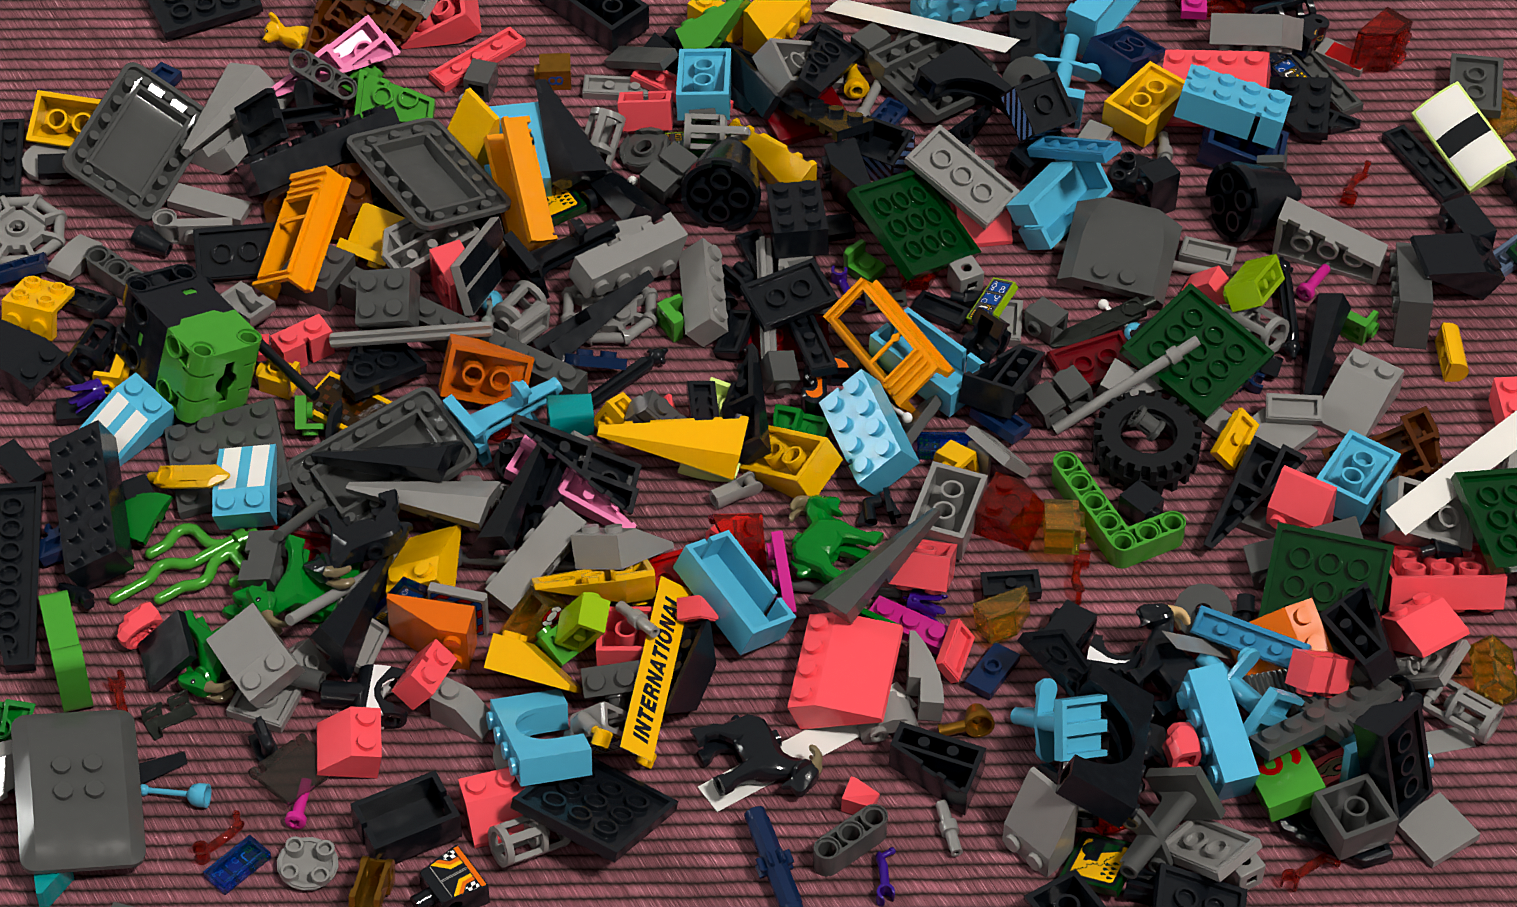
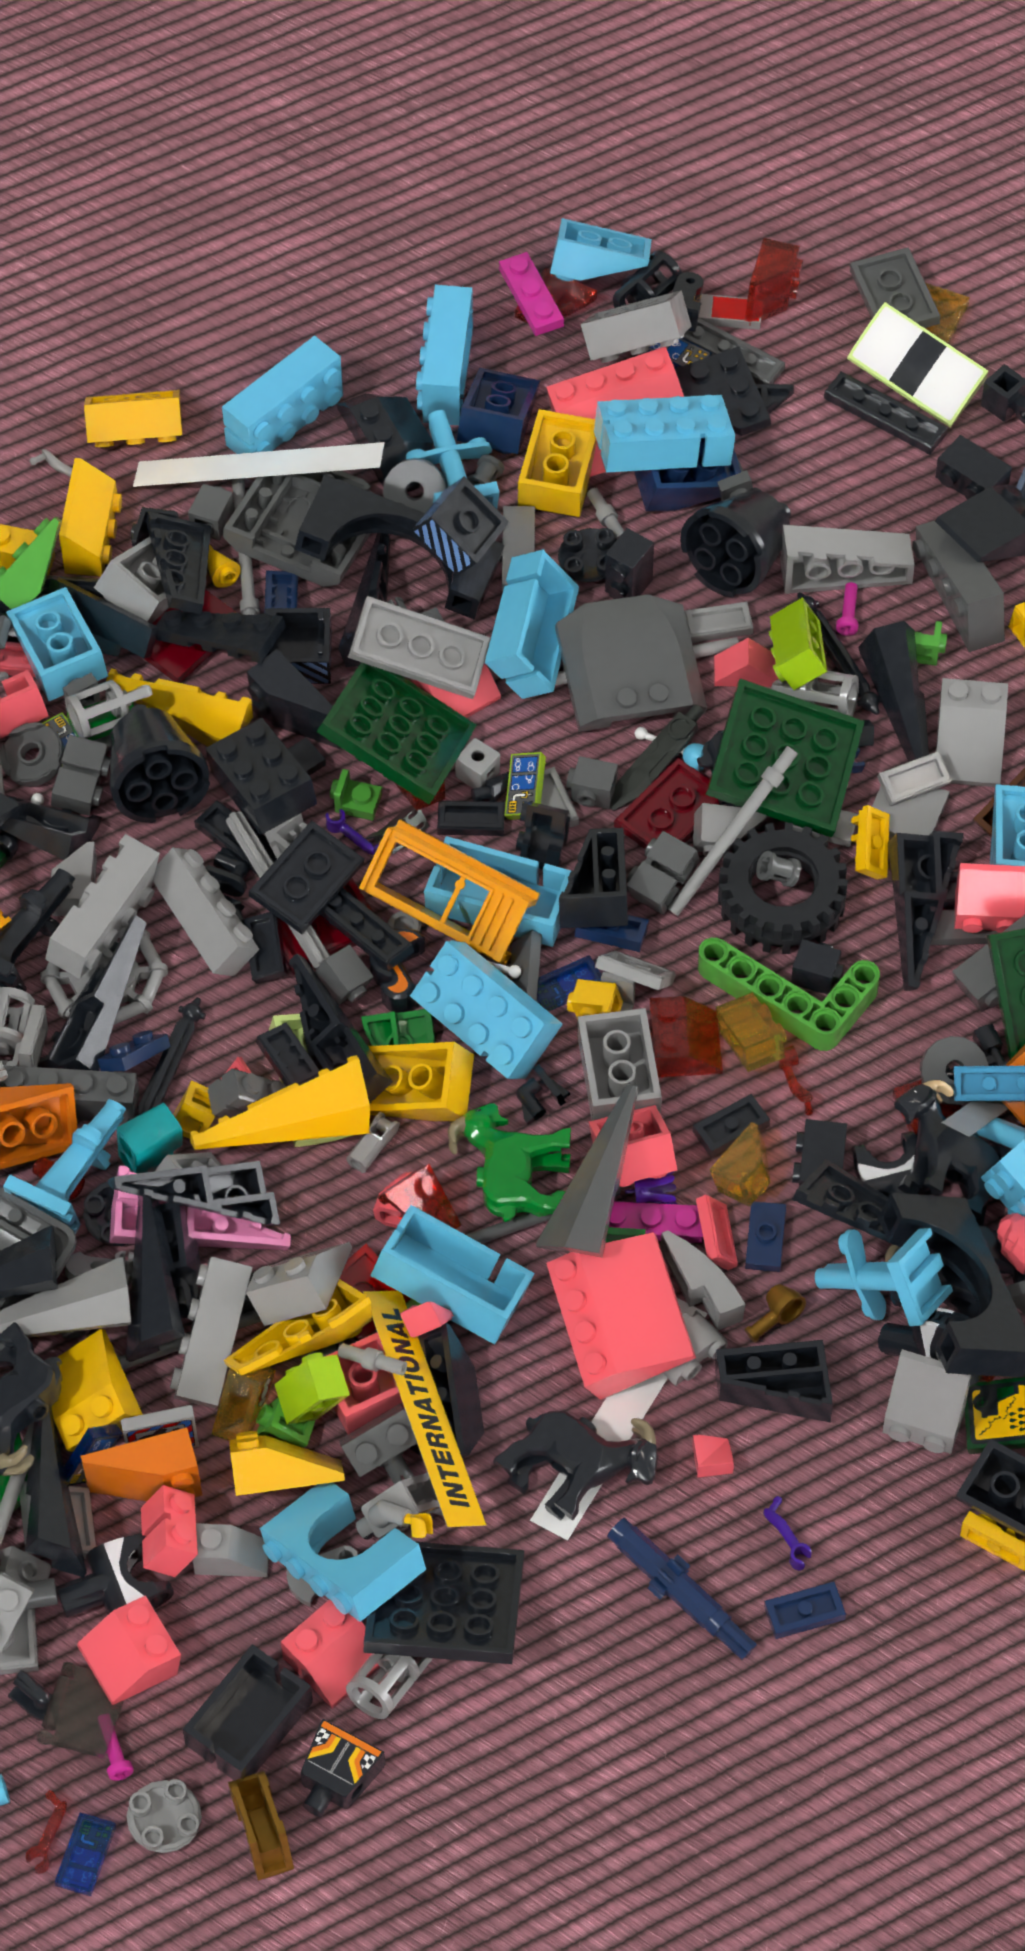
camera: 25 degrees left, 10 degrees up
(670, 316) = (182, 959): bright green bracket -> none
(781, 574) = (487, 1226): dark pink plate -> none
(841, 850) = (736, 1495): dark grey beam -> none
(949, 828) = (823, 1445): light grey bar -> none
(1074, 149) = (529, 563): dark azure tile -> none
(1091, 90) = (487, 471): none -> dark grey bush
(1349, 196) = (829, 485): clear red piece -> none

